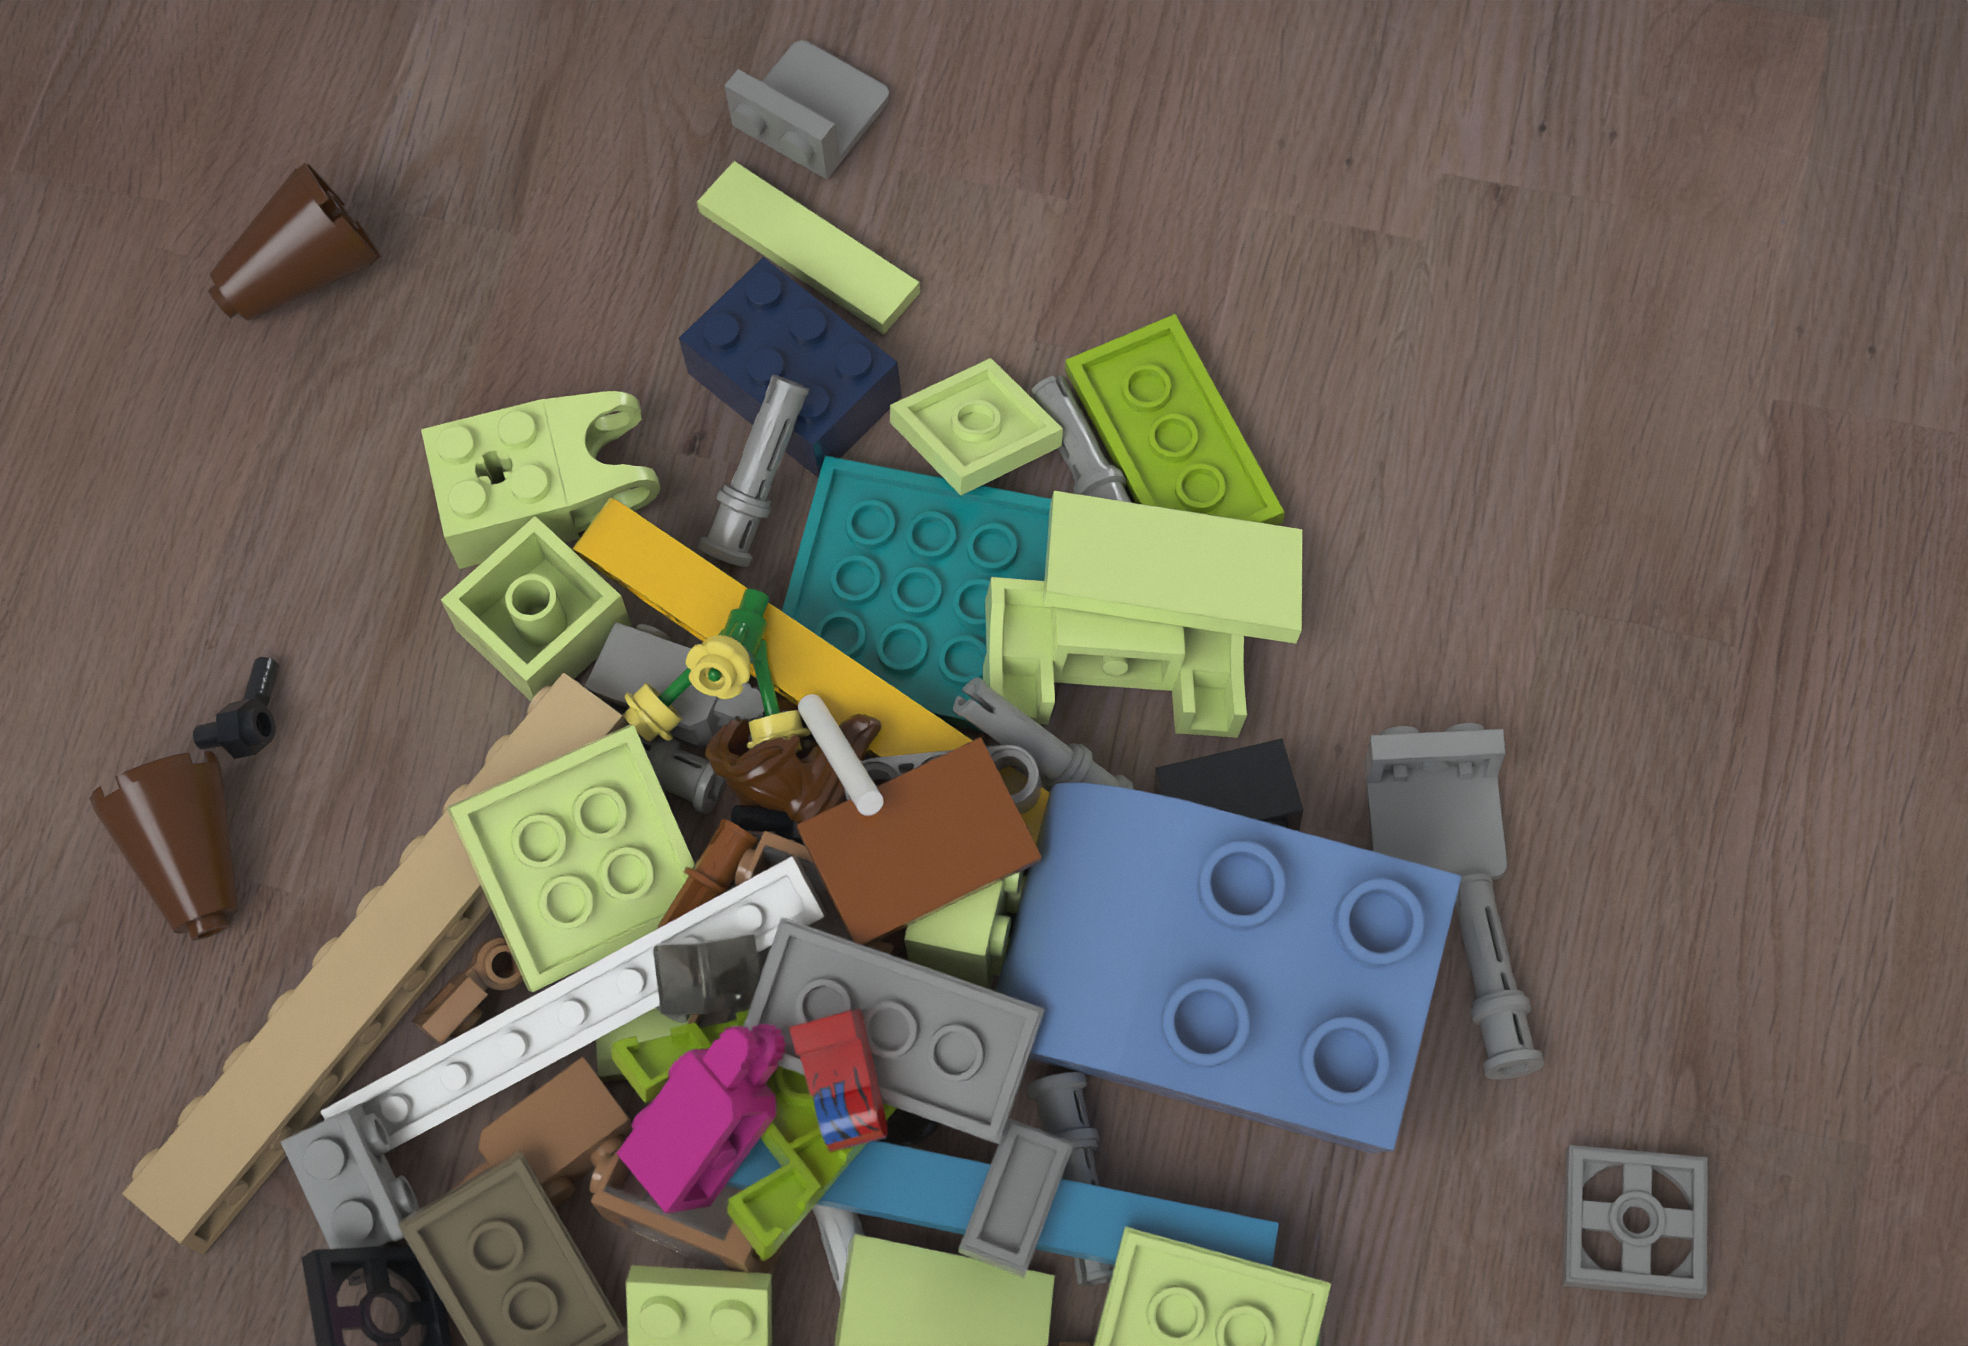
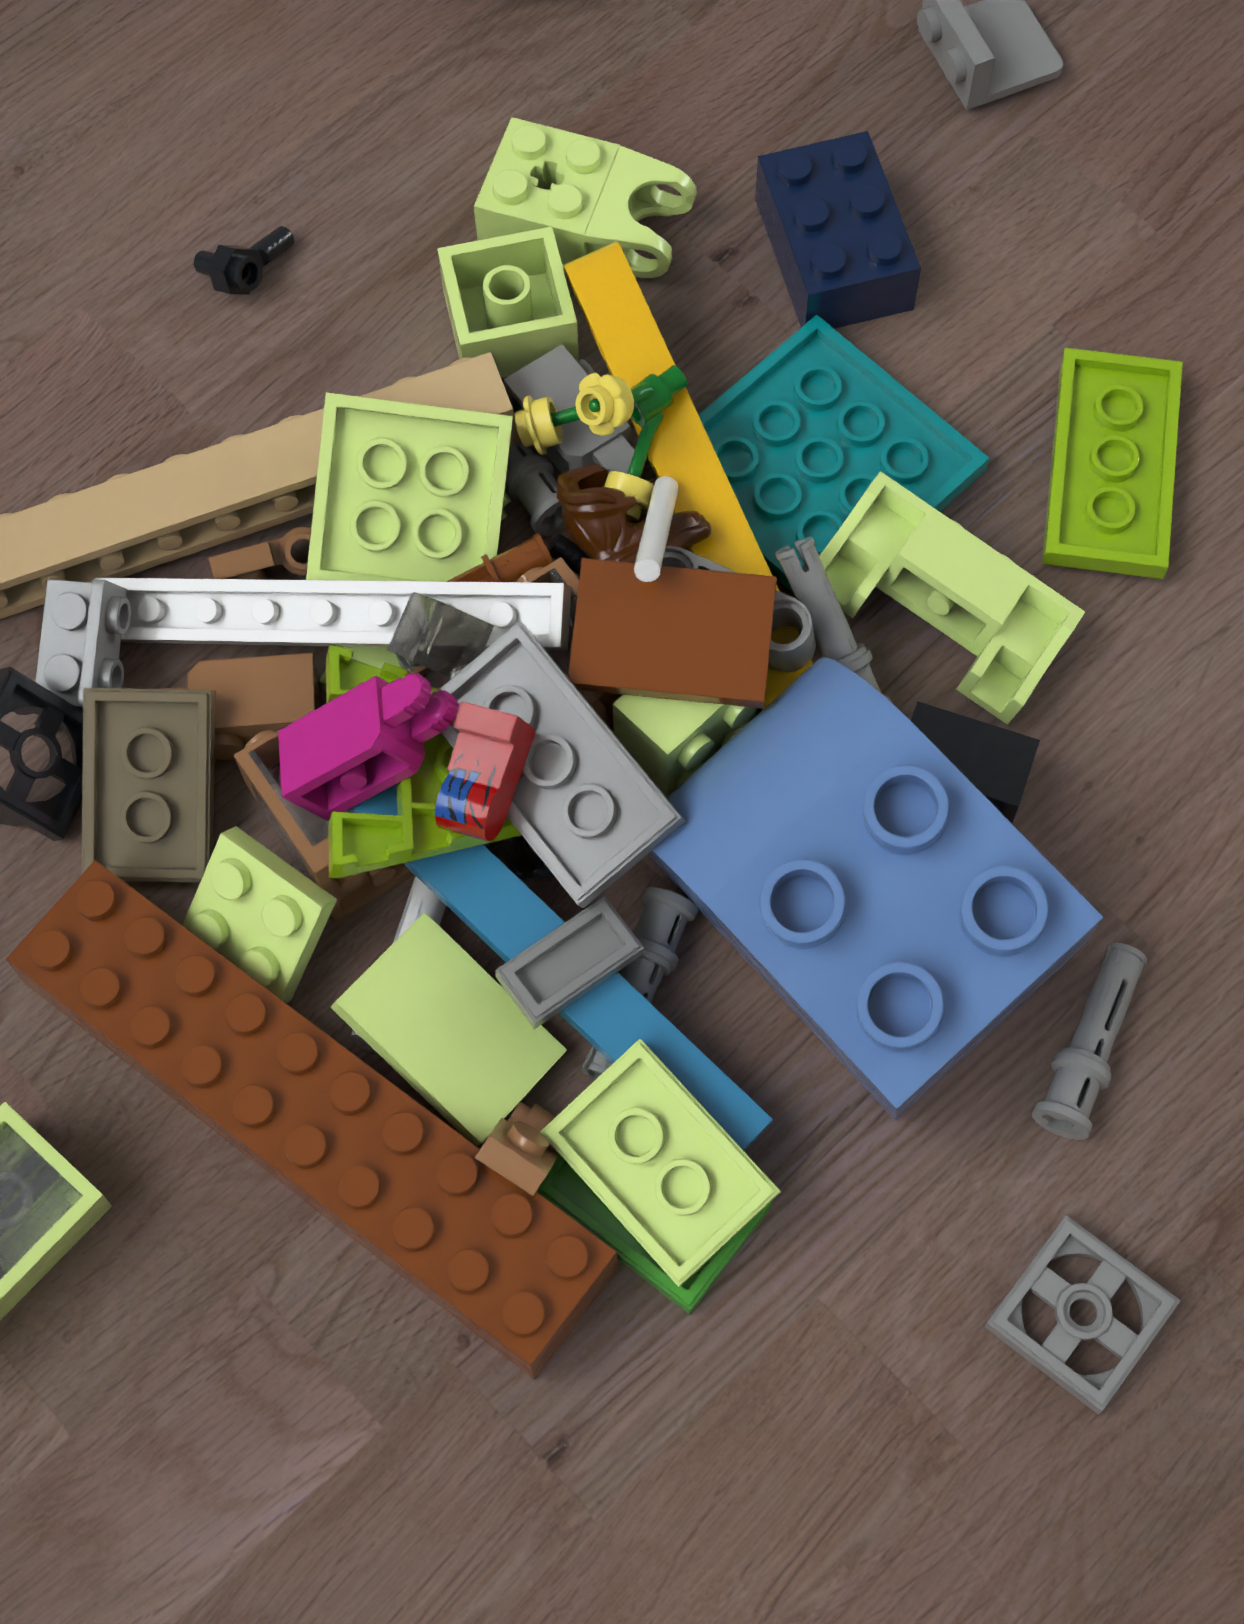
camera: 30 degrees right, 0 degrees up
(176, 839) = (128, 316): reddish brown cone -> none
(746, 498) = (728, 308): light grey pin -> none
(809, 247) = (916, 154): yellowish green tile -> none
(976, 426) = (954, 358): yellowish green plate -> none
(1079, 446) = (1026, 460): light grey pin -> none
(1174, 567) = (1040, 552): yellowish green tile -> none
(1438, 797) = (1145, 868): light grey bracket -> none

